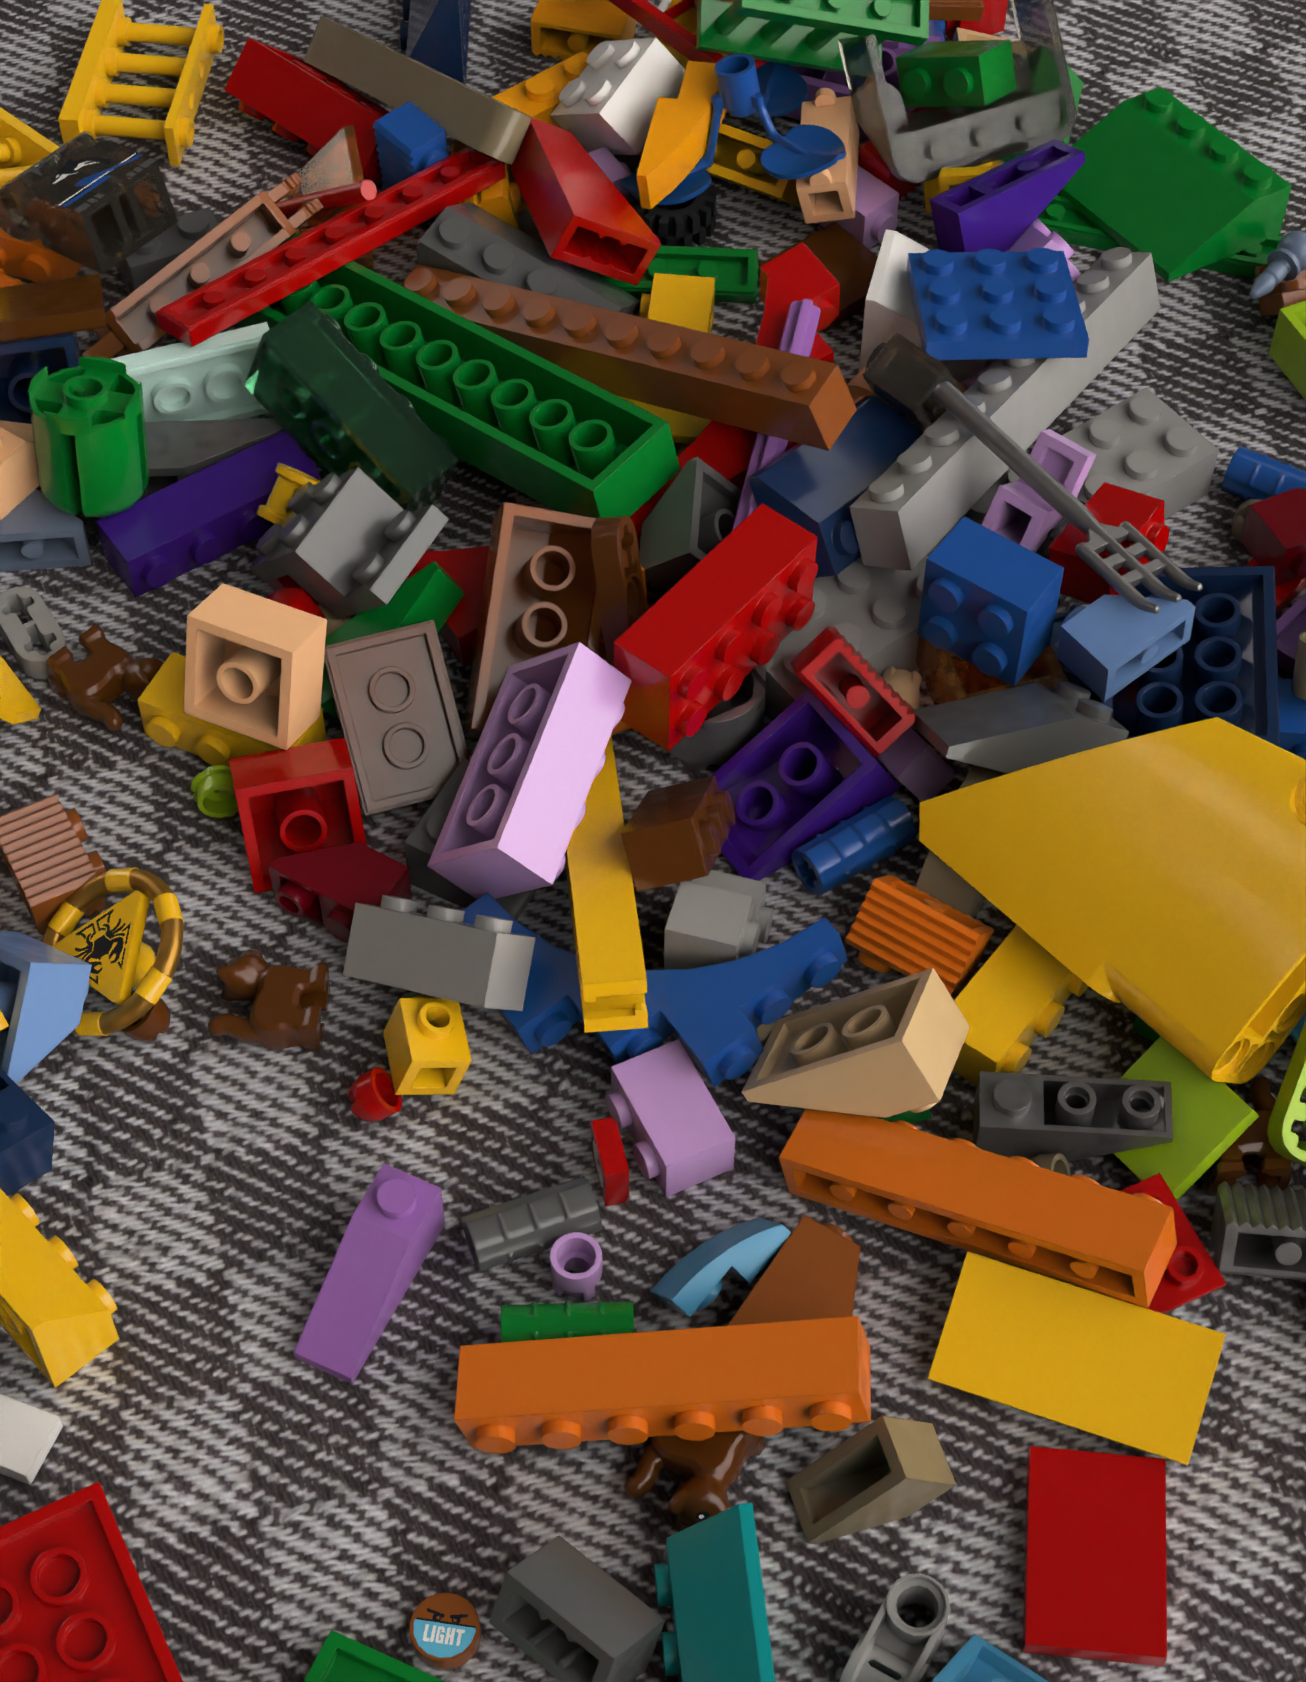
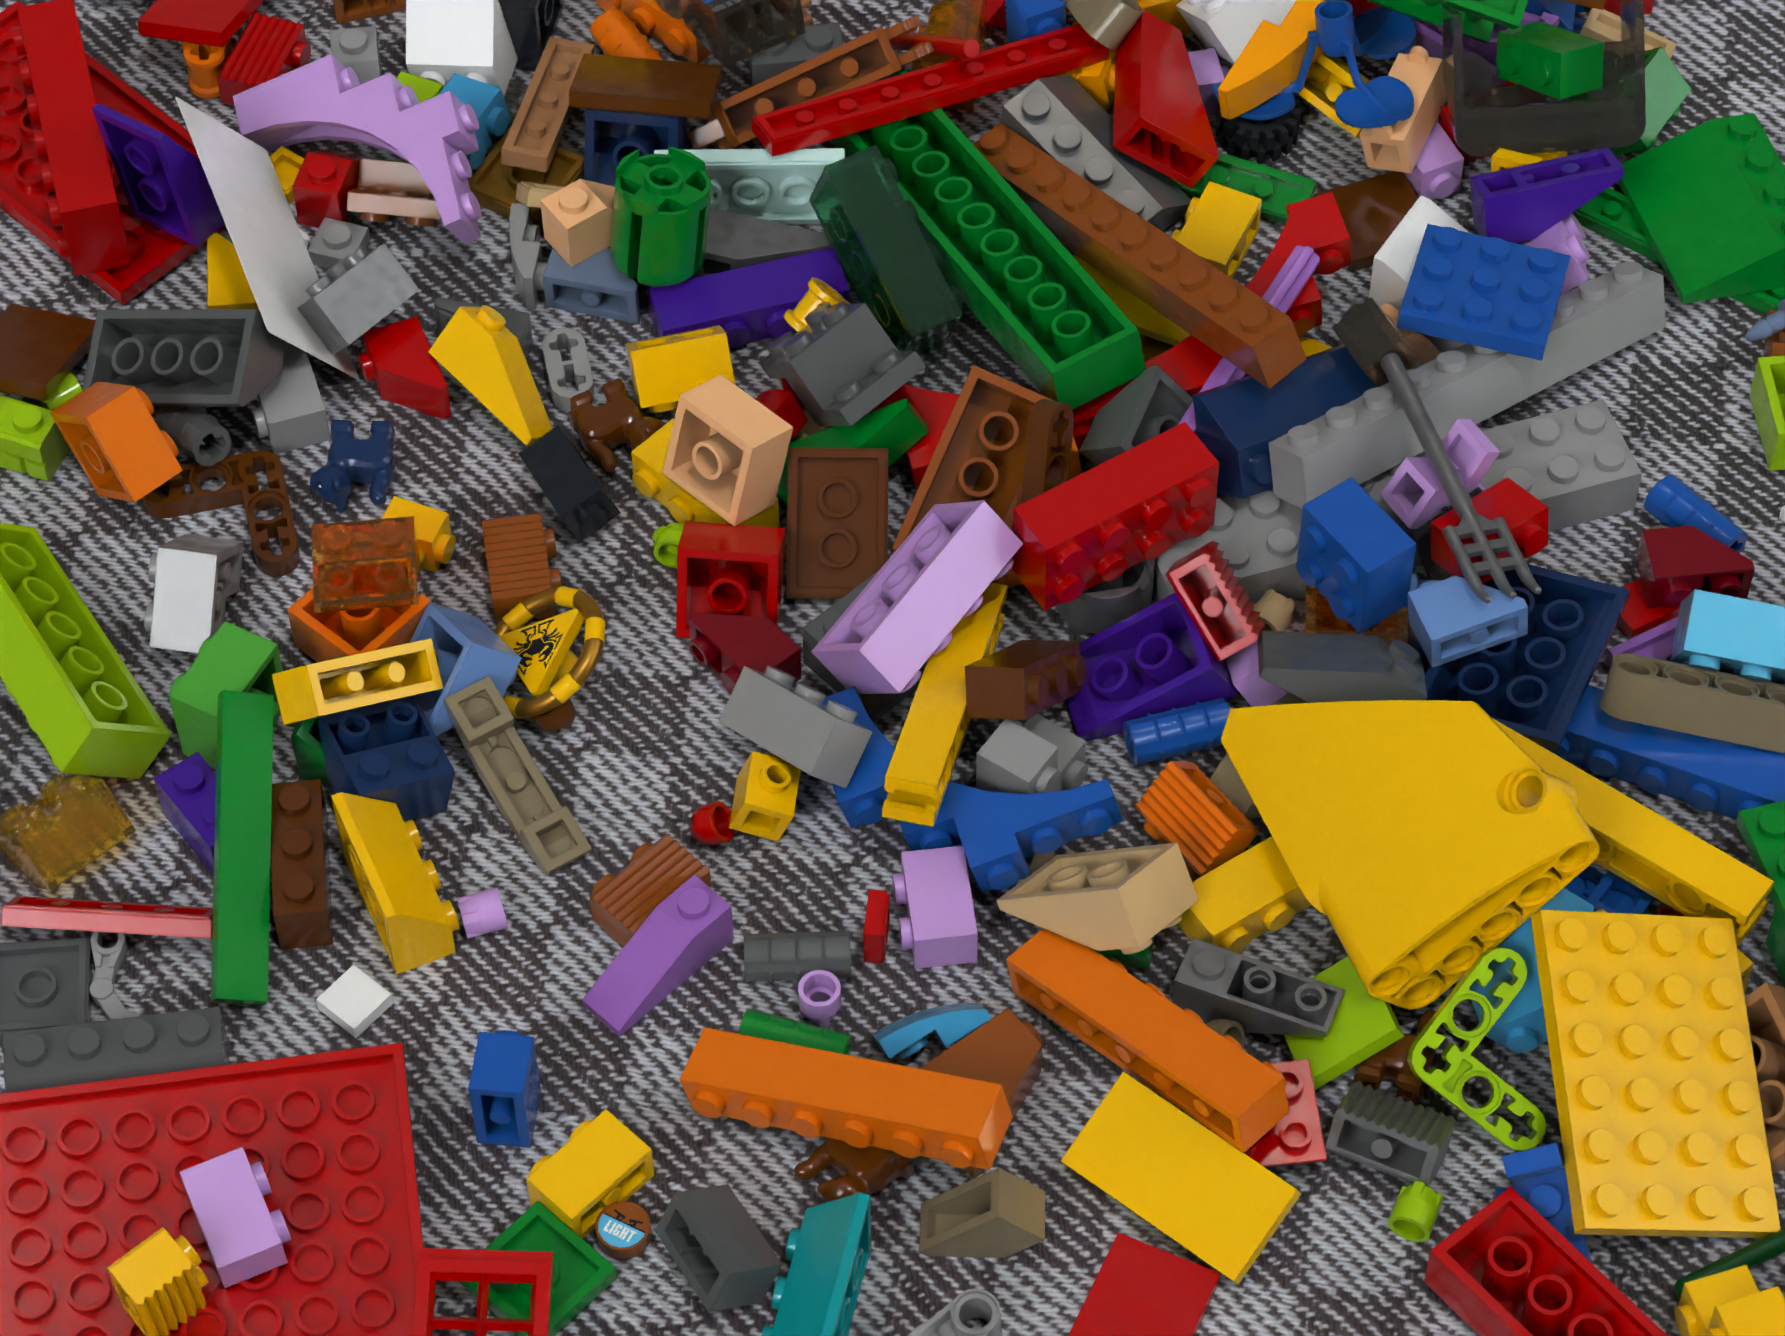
camera: 20 degrees right, 0 degrees up
(77, 753) = (569, 483): none -> black brick
(124, 1109) = (513, 777): none -> dark tan slope
(138, 1281) = (482, 912): none -> lavender hose
(155, 596) = (675, 364): none -> yellow brick
(244, 1498) = (505, 1089): none -> blue brick
(279, 1002) = (665, 730): reddish brown animal -> none
(329, 1186) = (654, 873): none -> dark orange brick
(382, 1573) = (591, 1171): none -> yellow brick

